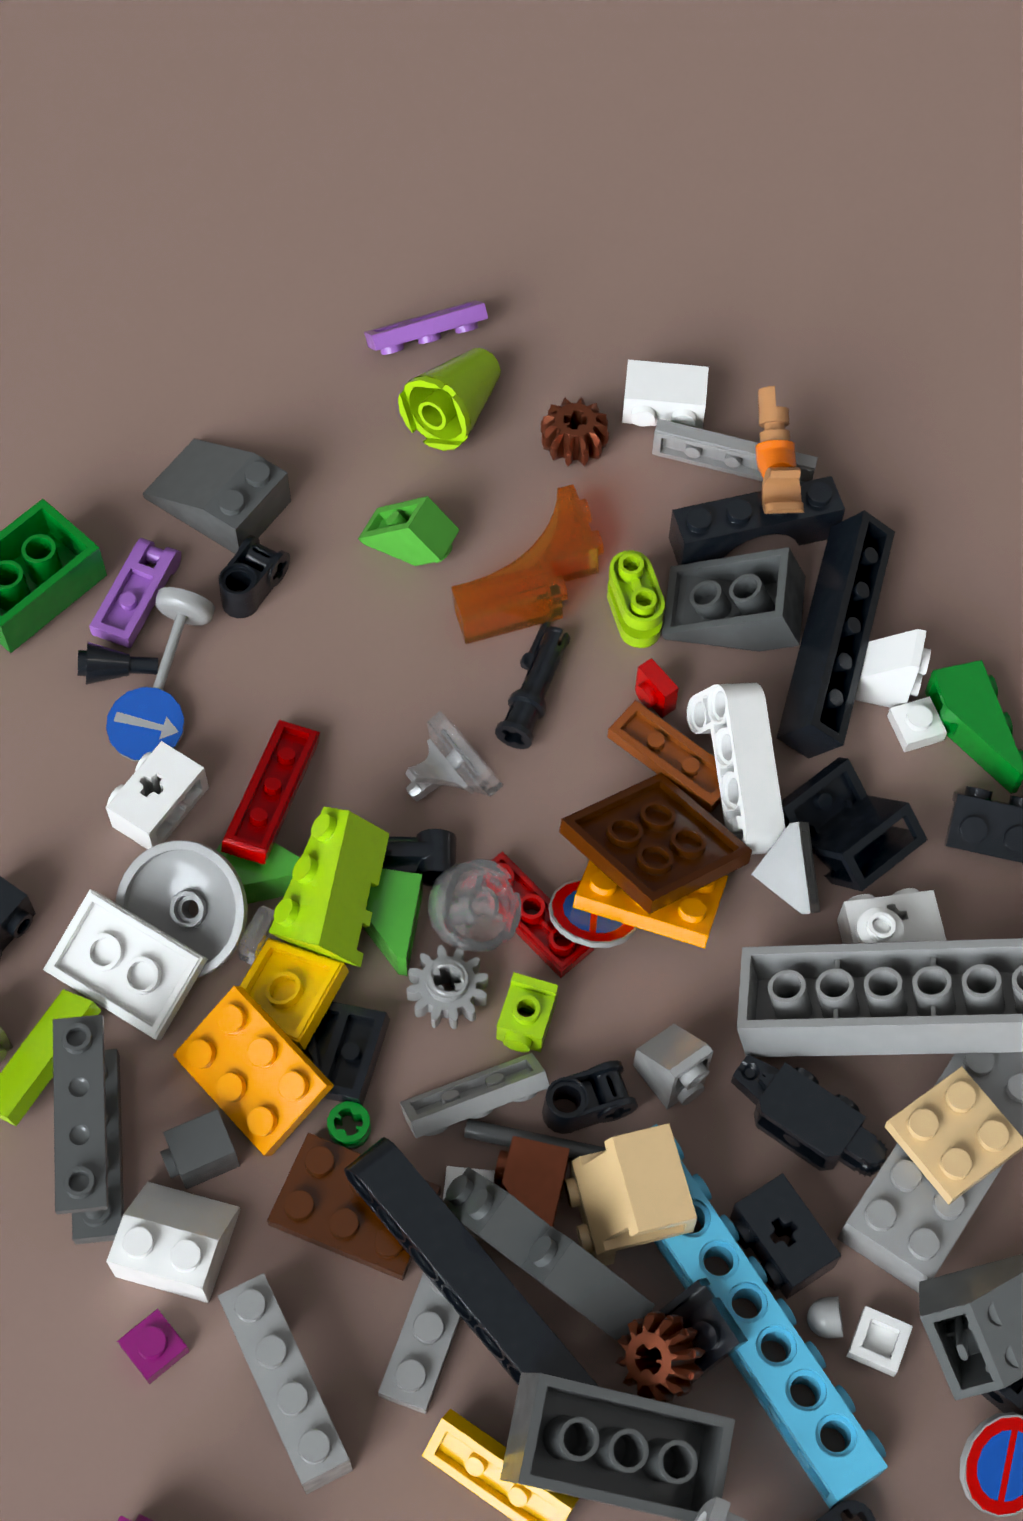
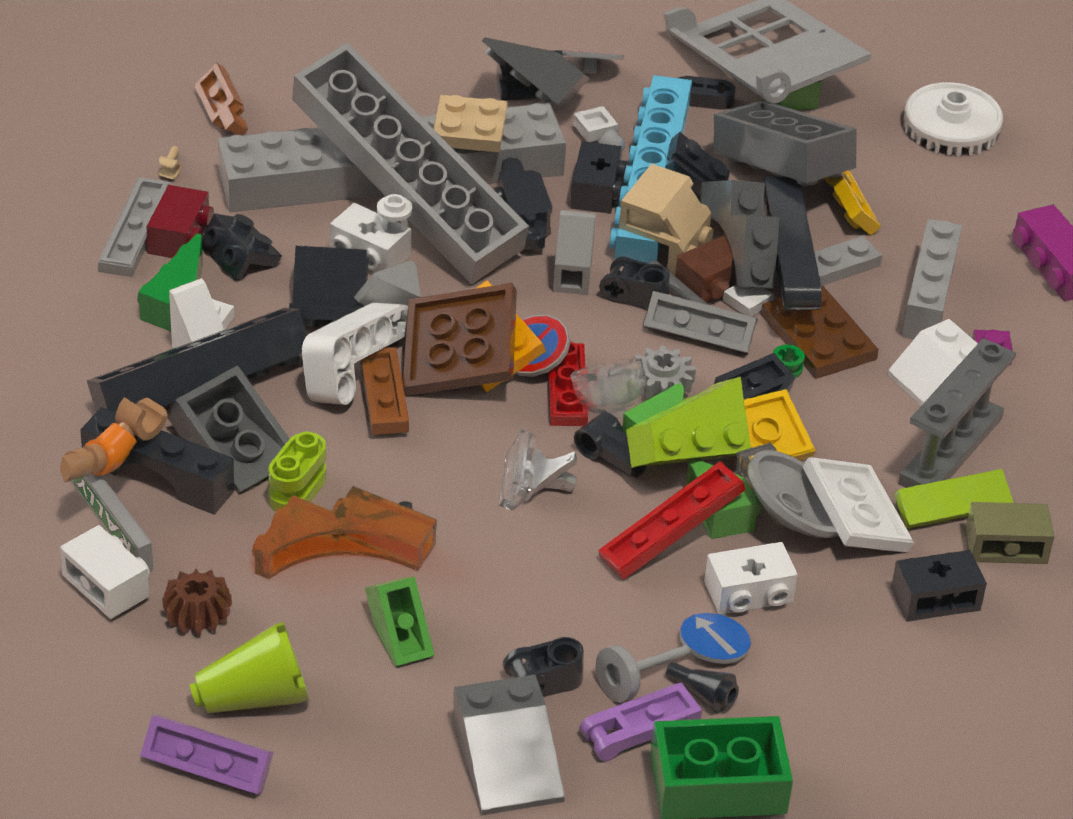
camera: 140 degrees left, 20 degrees down
(199, 1150) = (891, 395): dark grey brick -> none
(253, 1070) = (825, 405): light orange plate -> none
(528, 702) = (439, 474): black pin -> none
(531, 996) = (627, 335): lime brick -> none
(656, 688) = (350, 424): red plate -> none
(664, 1337) = (724, 154): copper gear -> none

